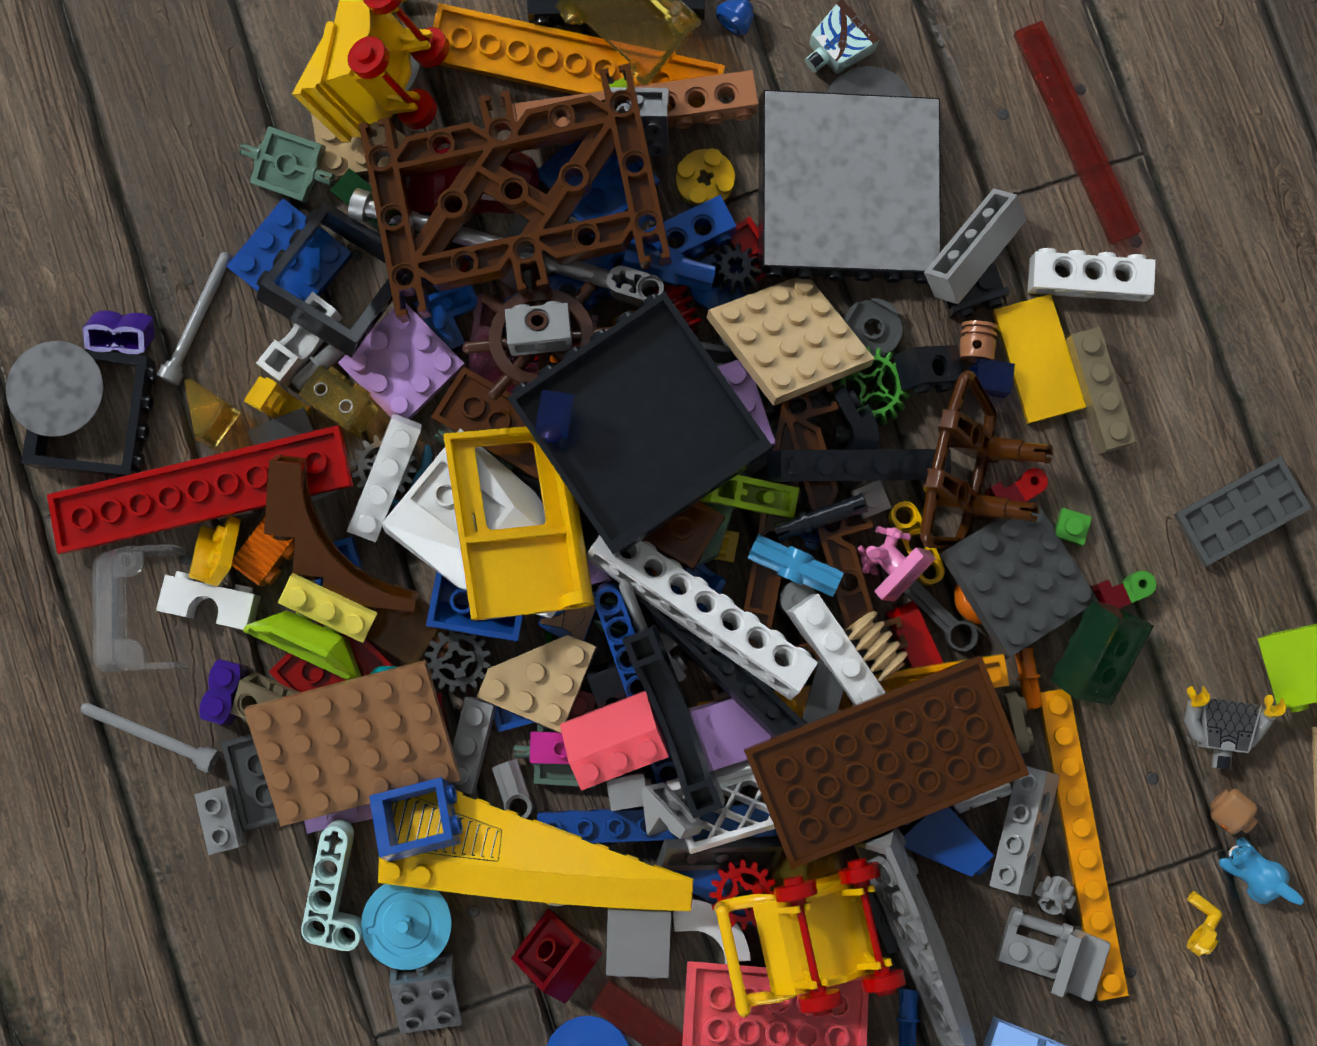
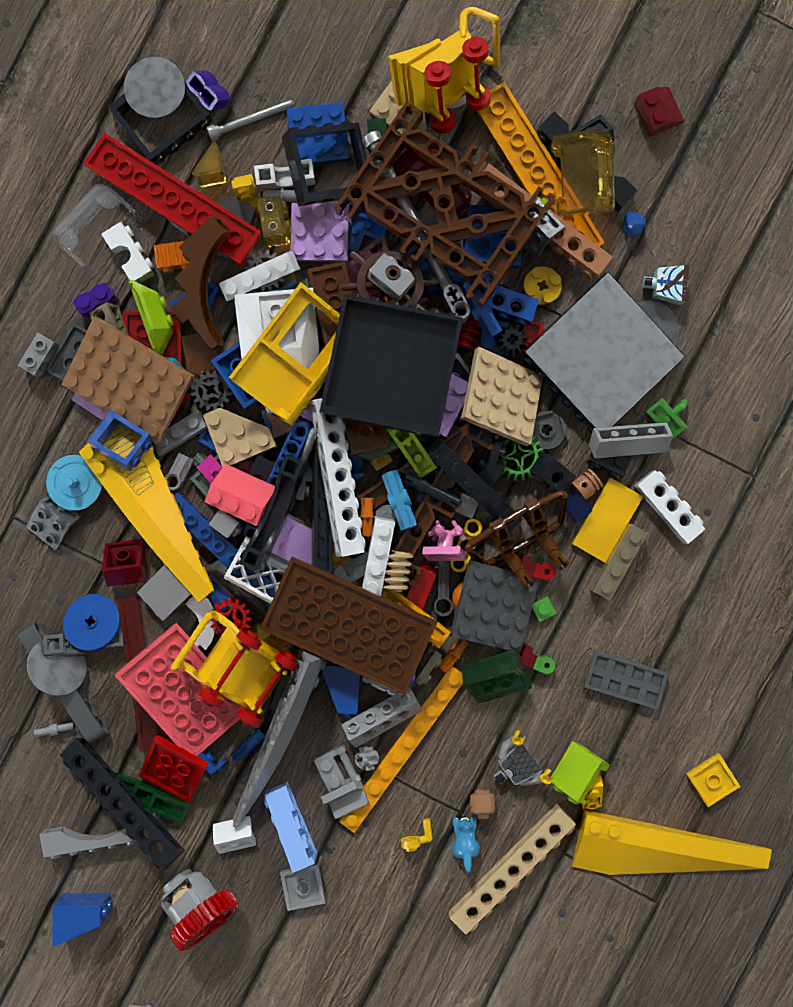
camera: 50 degrees right, 5 degrees up
(204, 758) = (59, 321): light grey piece -> none
(214, 552) = (152, 233): yellow bracket -> none
(287, 164) = (360, 88): sand green plate -> none
(327, 607) = (175, 308): light yellow plate -> none
(333, 883) = (59, 432): light aqua beam -> none
(554, 415) = (355, 323): clear blue brick -> none
(667, 812) = (232, 549): light grey slope -> none
(777, 620) = (367, 516): none -> orange axle
(978, 183) = (663, 413): none -> bright green plate
(1076, 133) = (732, 435): clear red plate -> none

